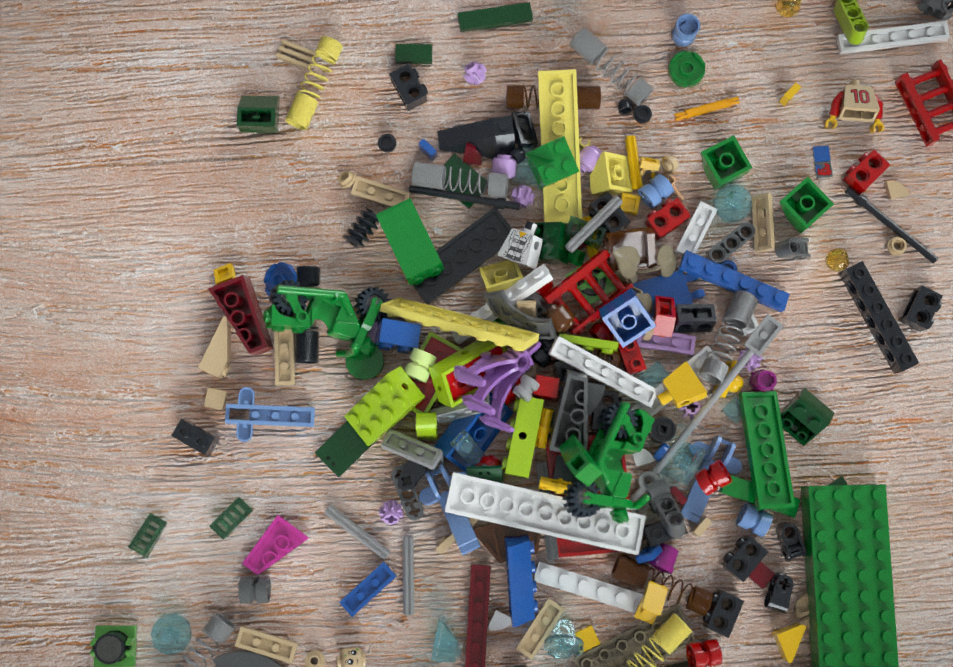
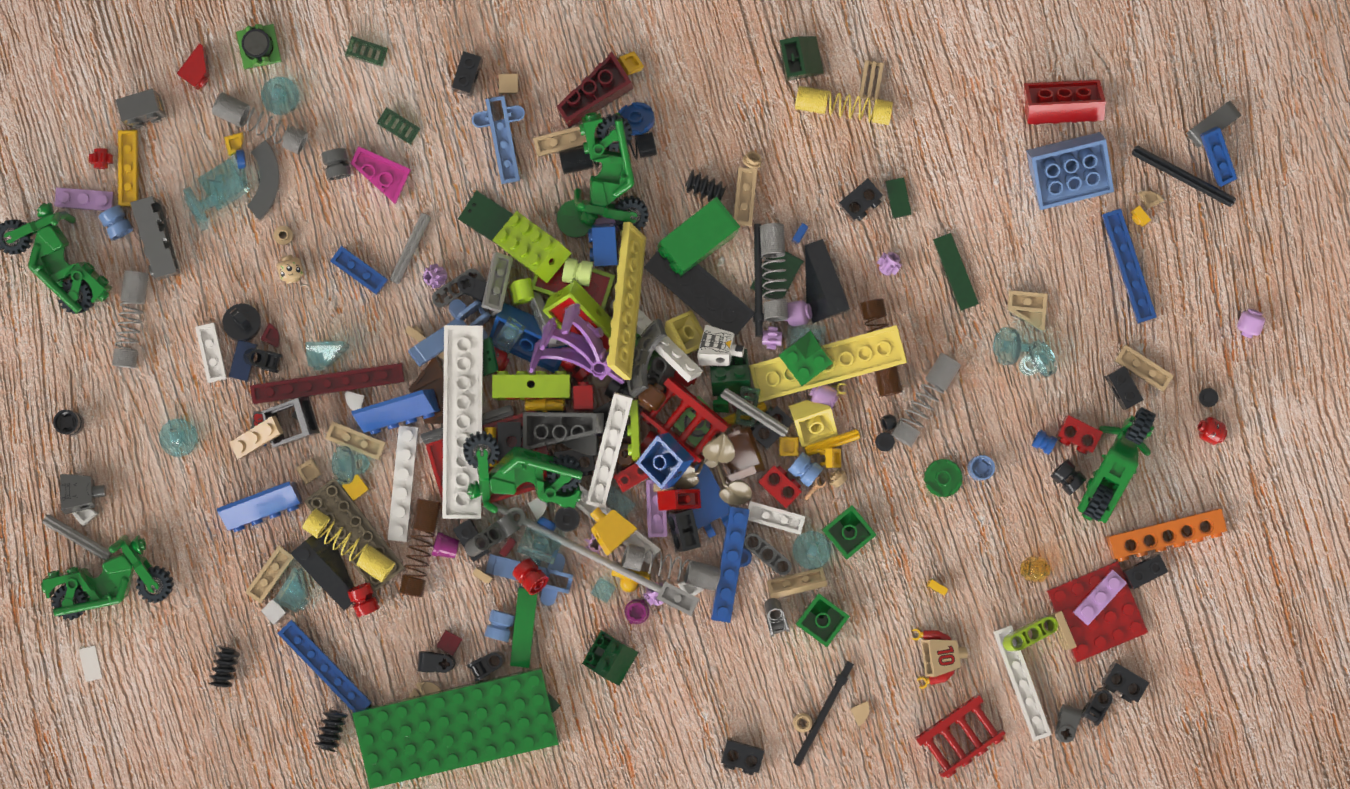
camera: 85 degrees right, 5 degrees up
(218, 354) = (552, 76): tan slope -> none
(266, 644) = (288, 187): tan plate -> none
(387, 143) = (799, 191): black plate -> none
(408, 575) = (380, 305): light grey axle -> none
(472, 155) = (803, 279): dark red tile -> none
(518, 154) = (812, 325): black hinge -> none
(524, 129) = (841, 325): black plate -> none
(526, 388) = (575, 377): light grey wheel -> none
(527, 307) = (655, 364): tan tile -> none
(553, 484) = (491, 423): yellow pin -> none
(579, 461) = (514, 439): green slope -> none
(648, 554) = (445, 528): blue tile -> none
(651, 602) = (400, 539): yellow slope -> none
(706, 108) = (905, 506): light orange piece -> none
(728, 615) = (404, 616): black brick -> none
(748, 562) = (459, 627): black brick -> none
(766, 450) = (568, 624): green plate -> none
(788, 640) = (393, 678): yellow slope -> none
(822, 161) = (875, 634): sticker -> none
(837, 260) = (774, 664): clear yellow piece -> none
(866, 172) = (870, 681): red brick -> none
(878, 318) = (723, 714): black brick -> none

